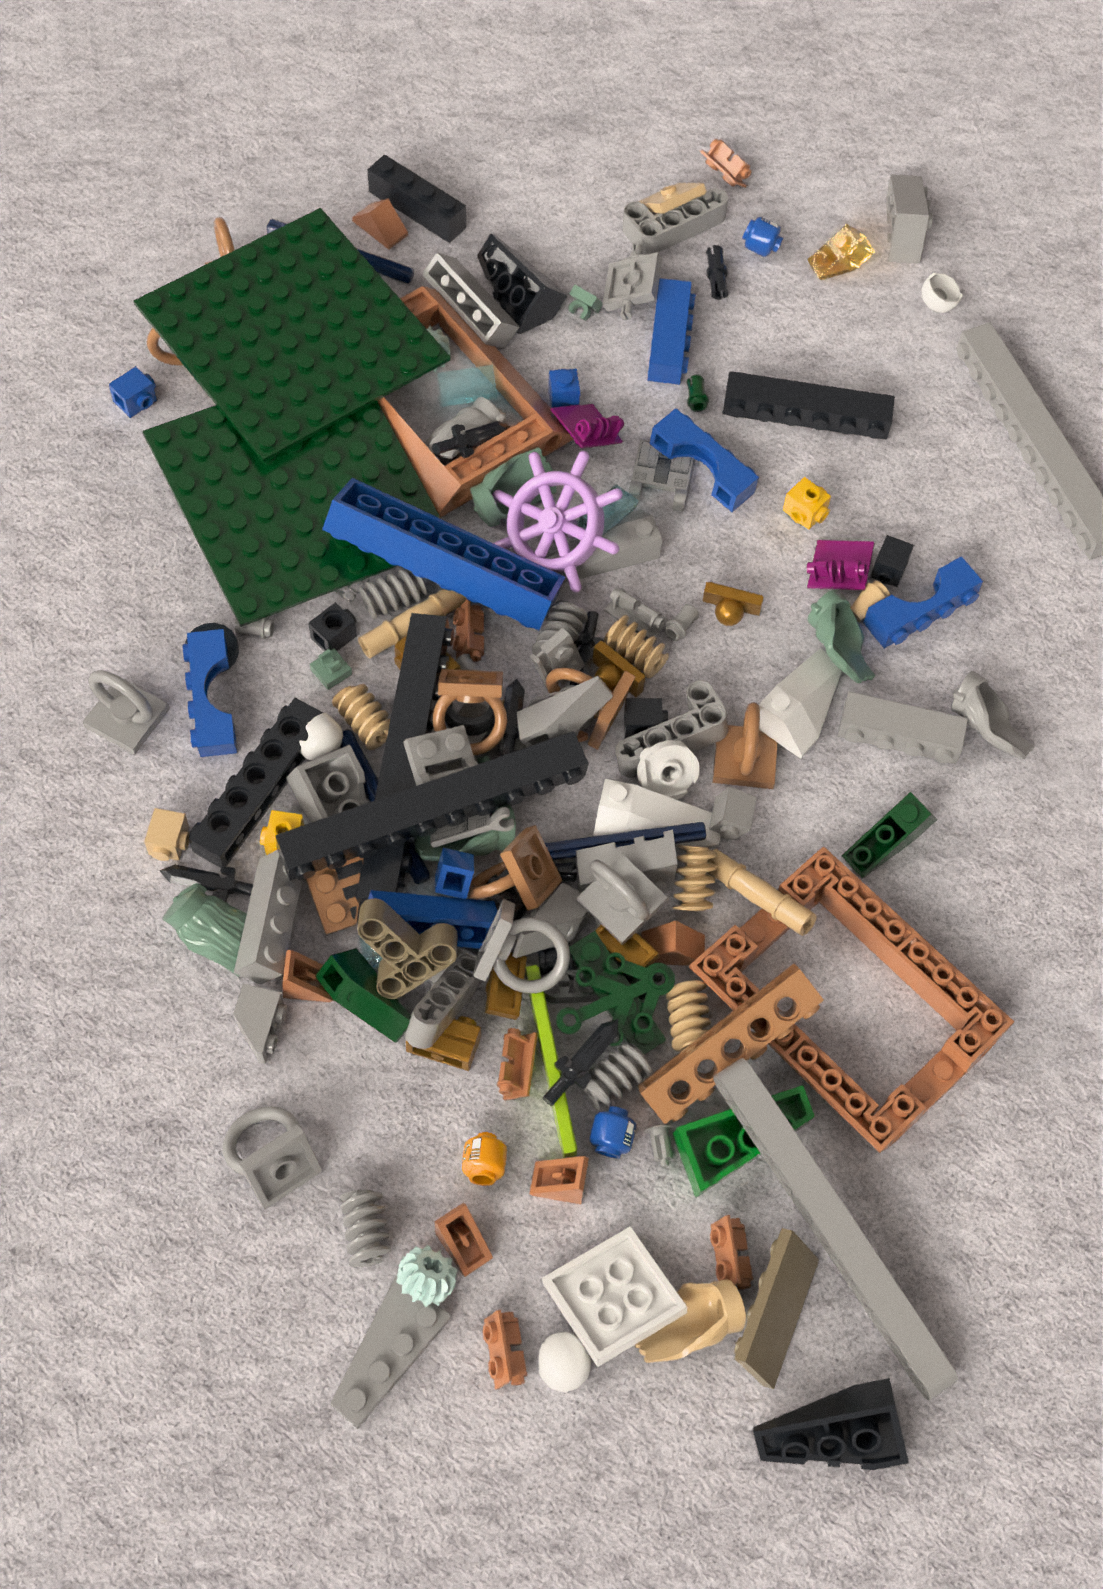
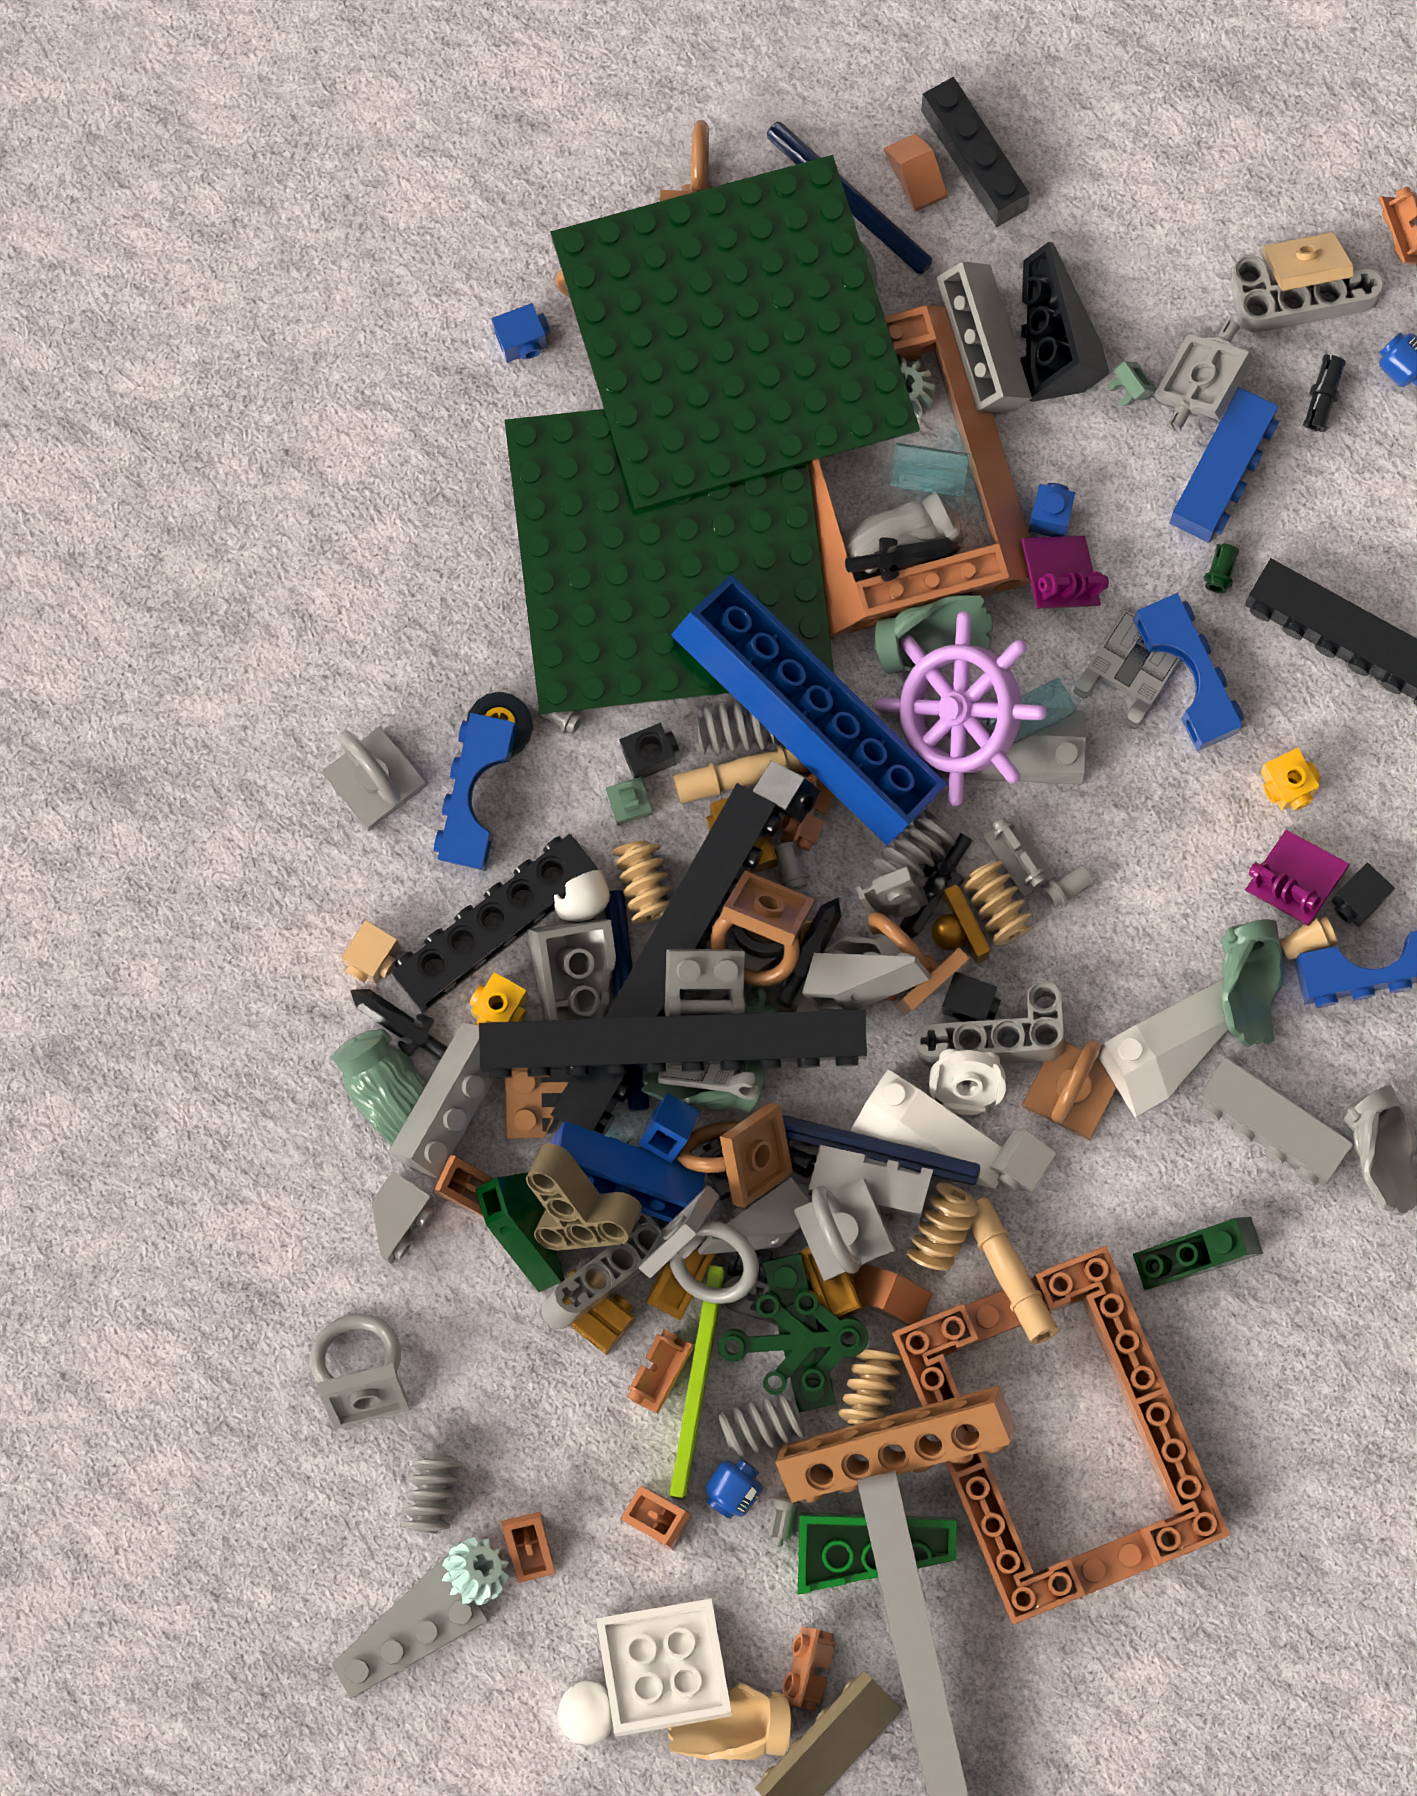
camera: 30 degrees right, 15 degrees up
(456, 608) = (788, 790): none -> brick
(484, 1159) = (584, 1465): light orange head -> none
(500, 1333) = (529, 1661): nougat hinge -> none
(582, 1061) = (728, 1400): black sword -> none
(731, 603) = (1135, 889): pearl gold tile -> none

